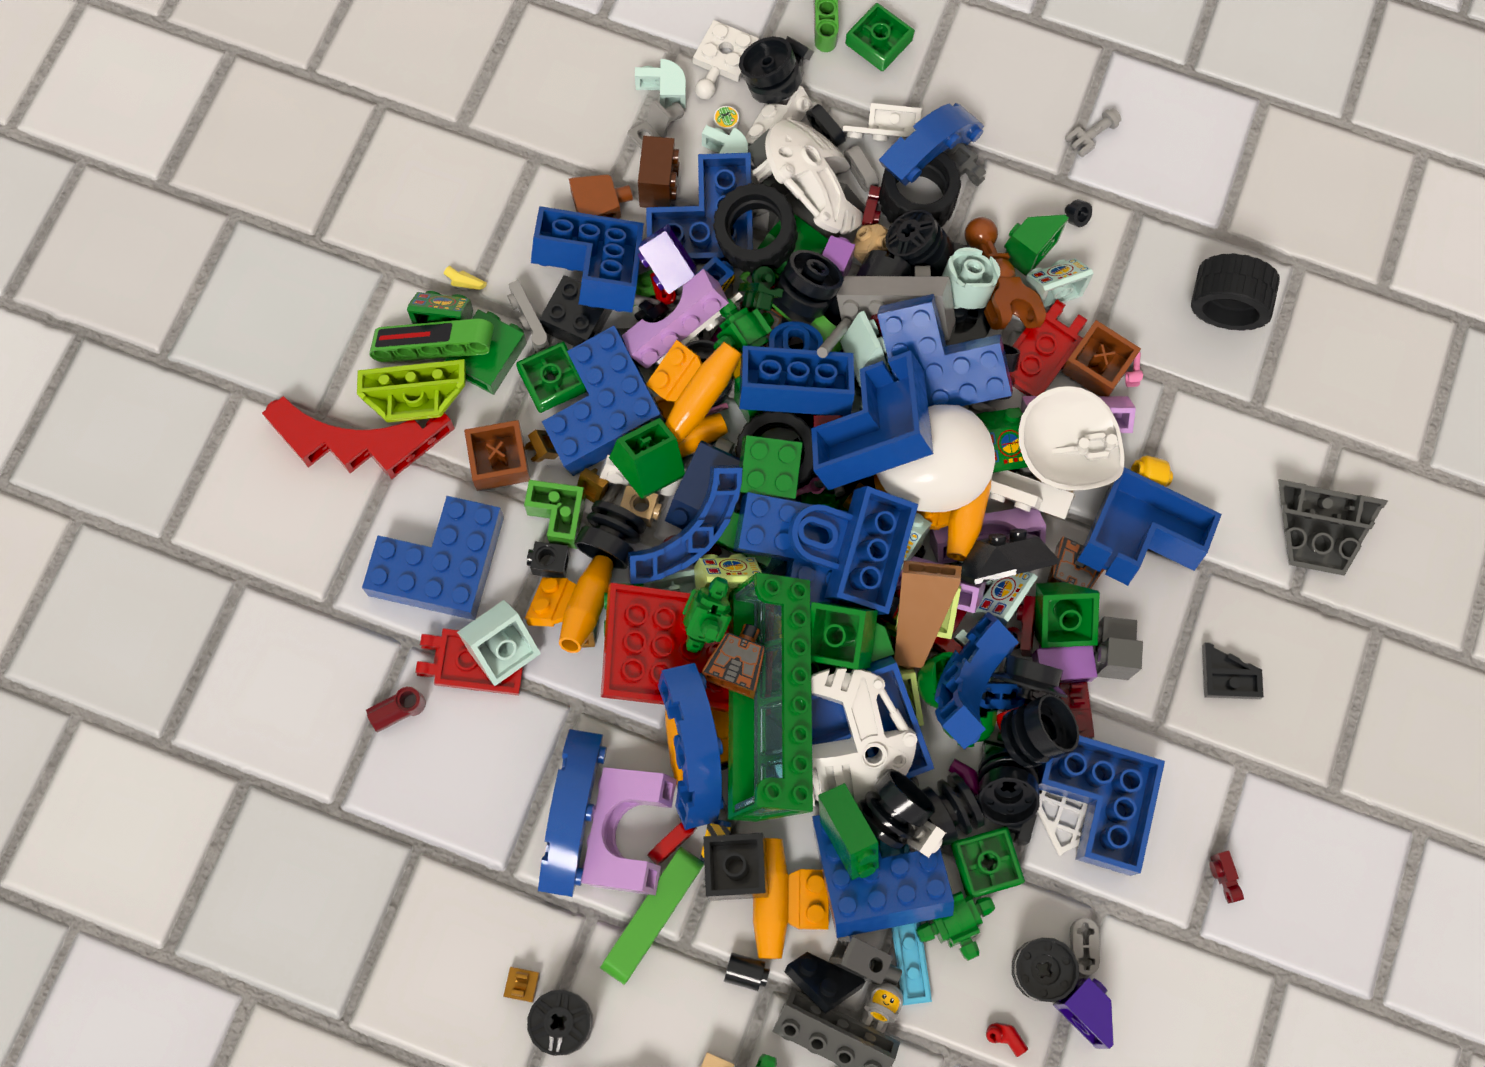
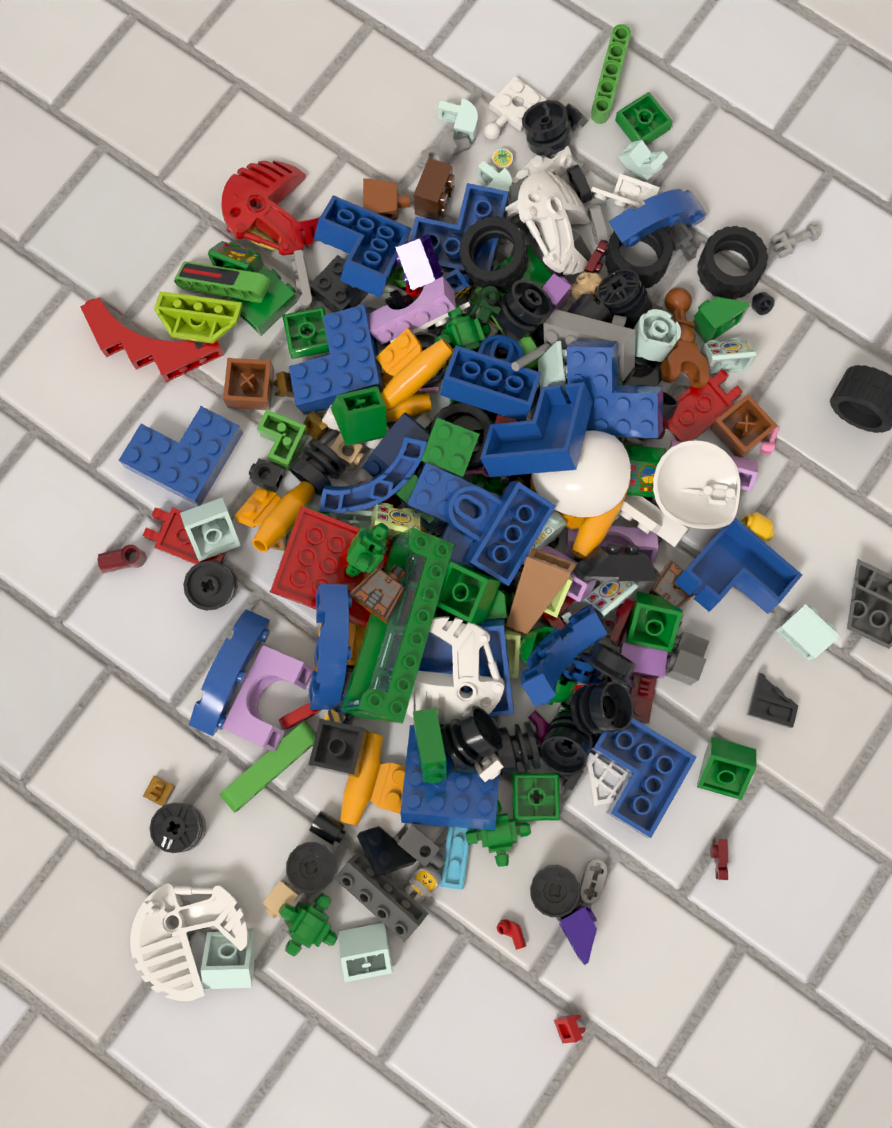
camera: 20 degrees right, 5 degrees up
(451, 217) = (265, 187): none -> red piece
(501, 711) = (198, 590): none -> black wheel
(755, 1015) = (297, 871): none -> black wheel
(889, 83) = (640, 160): none -> light aqua brick
(1035, 148) = (738, 240): none -> black tyre
(1202, 766) = (727, 768): none -> green slope
(1247, 579) = (808, 632): none -> light aqua slope

